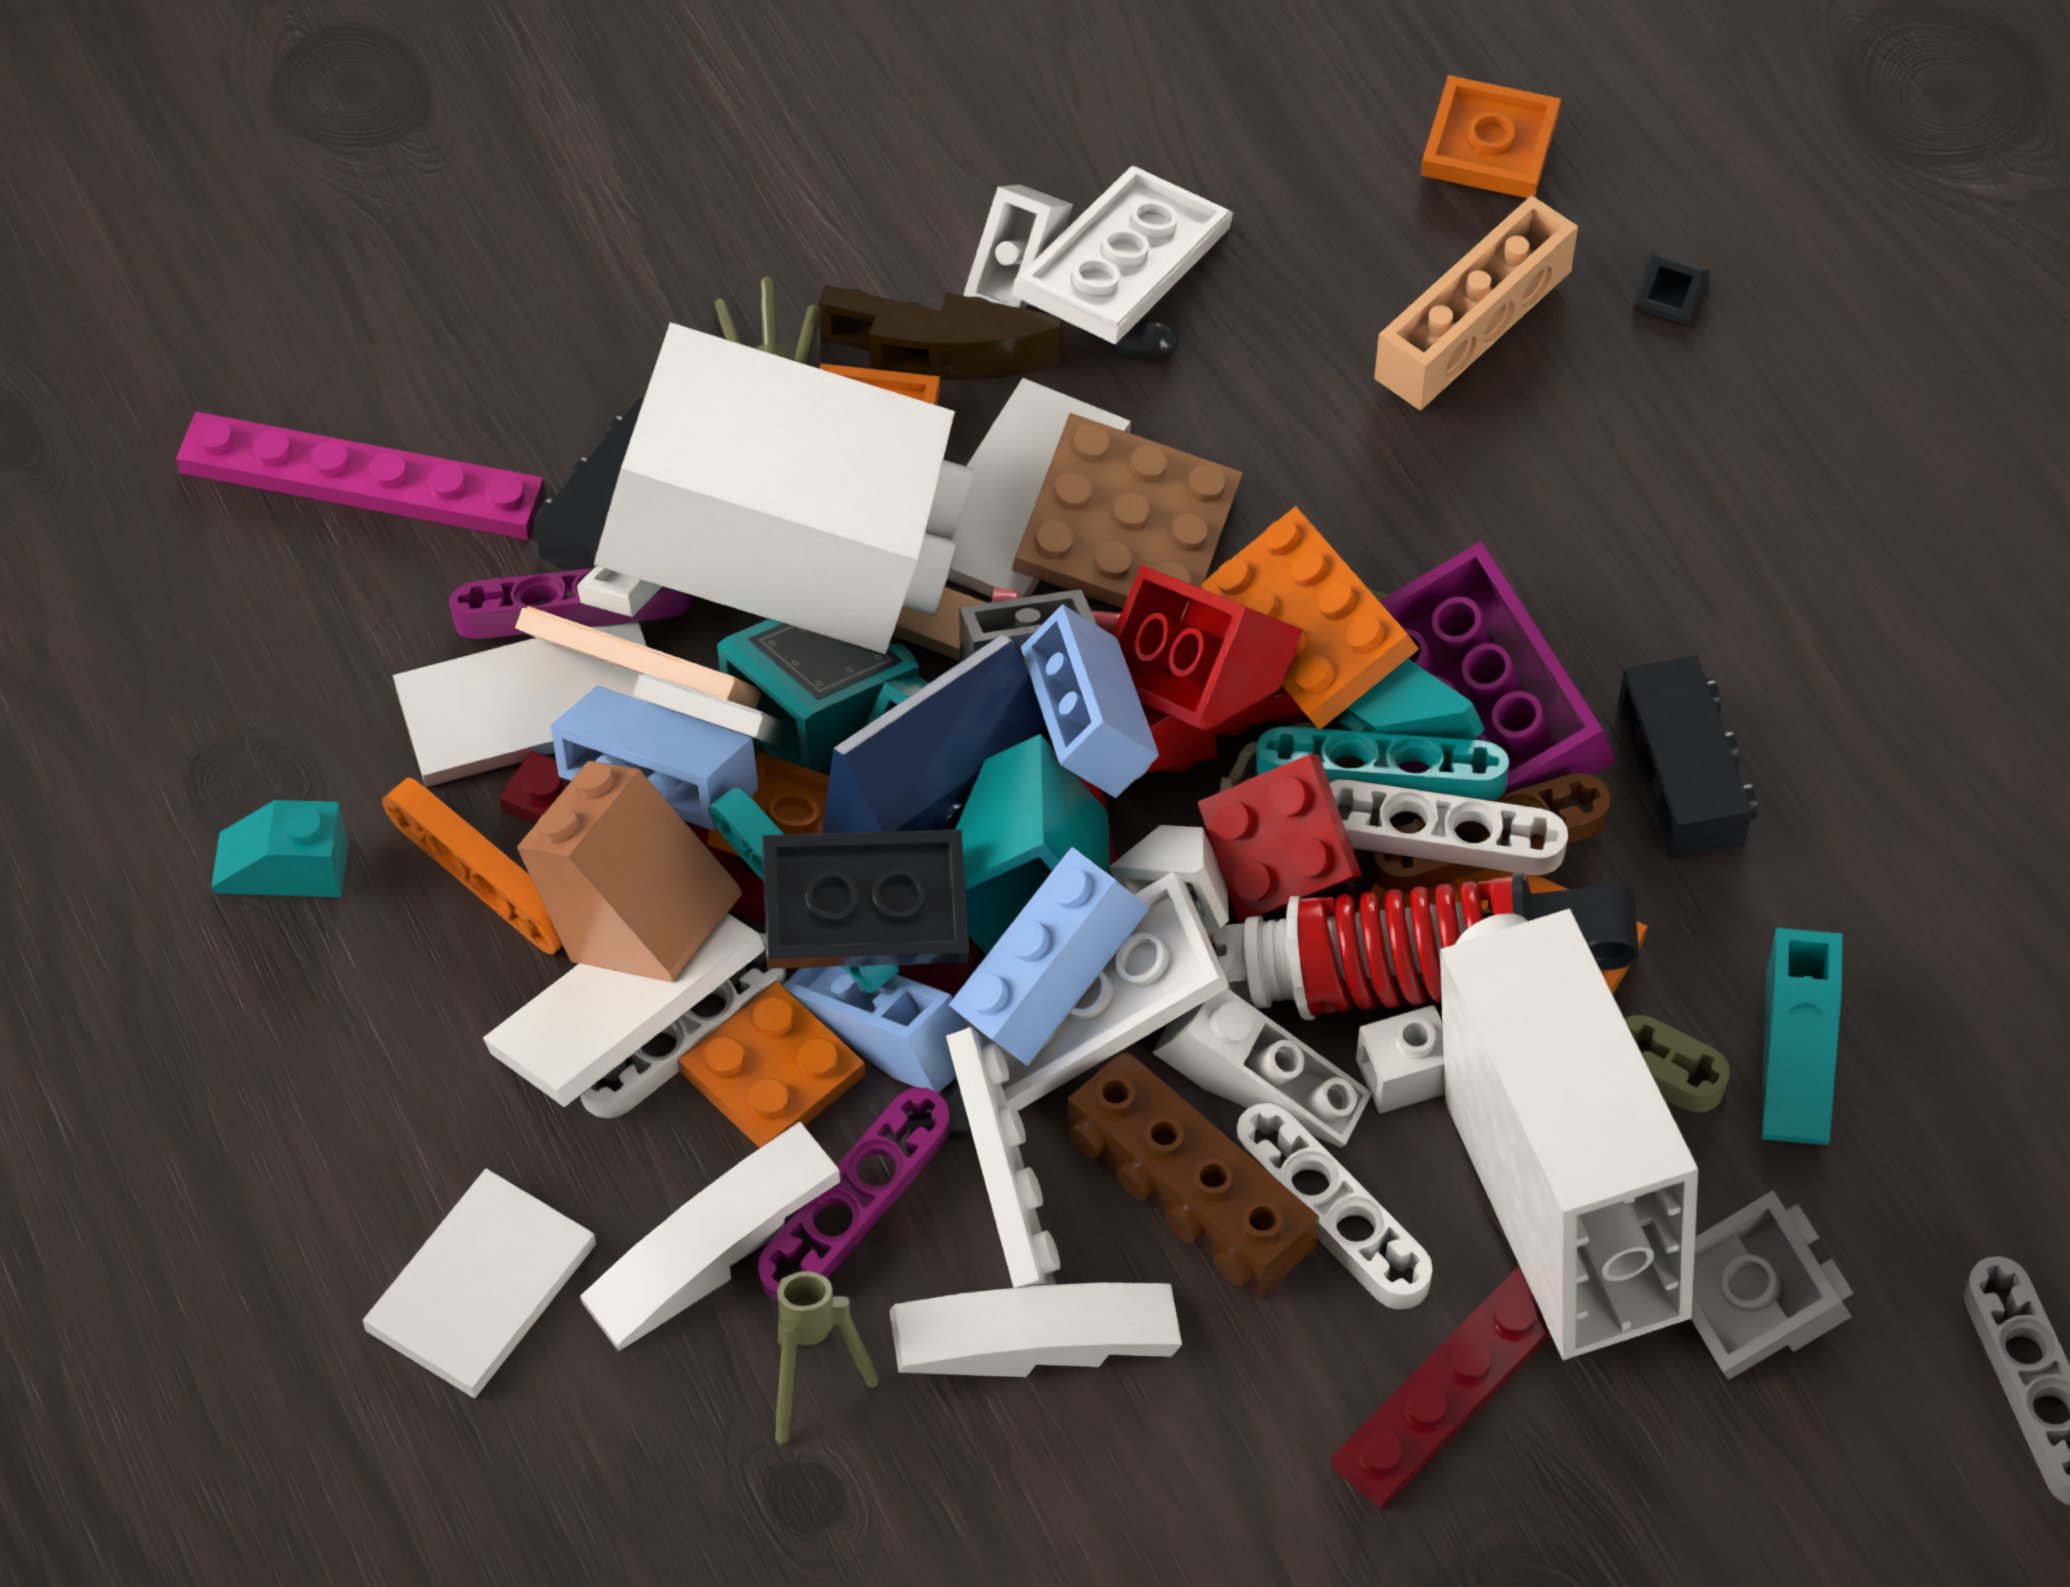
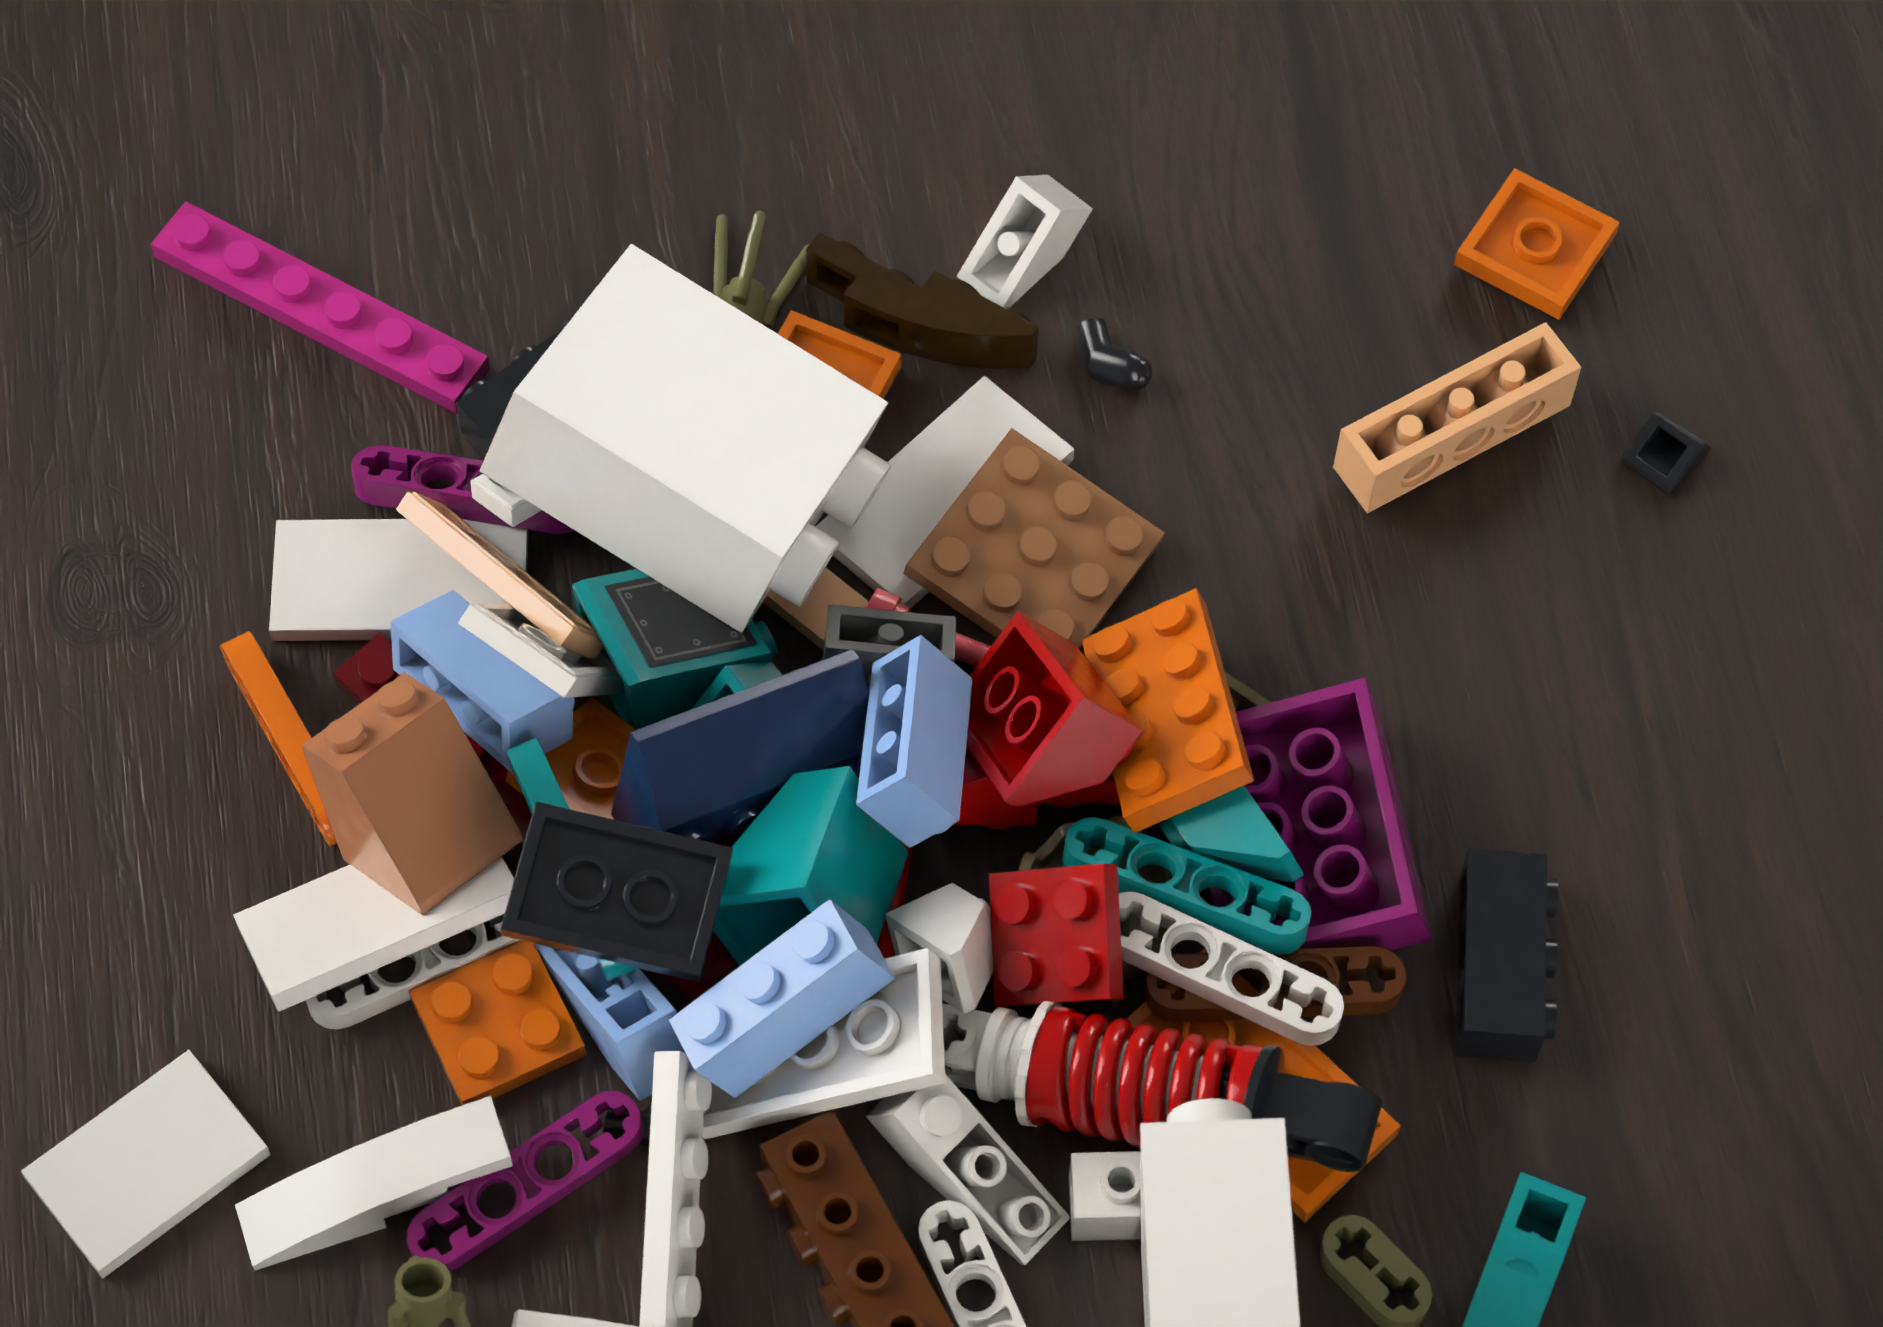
camera: 15 degrees right, 5 degrees up
(284, 851) = (113, 673): teal slope -> none
(1122, 254) = (1123, 274): white tile -> none

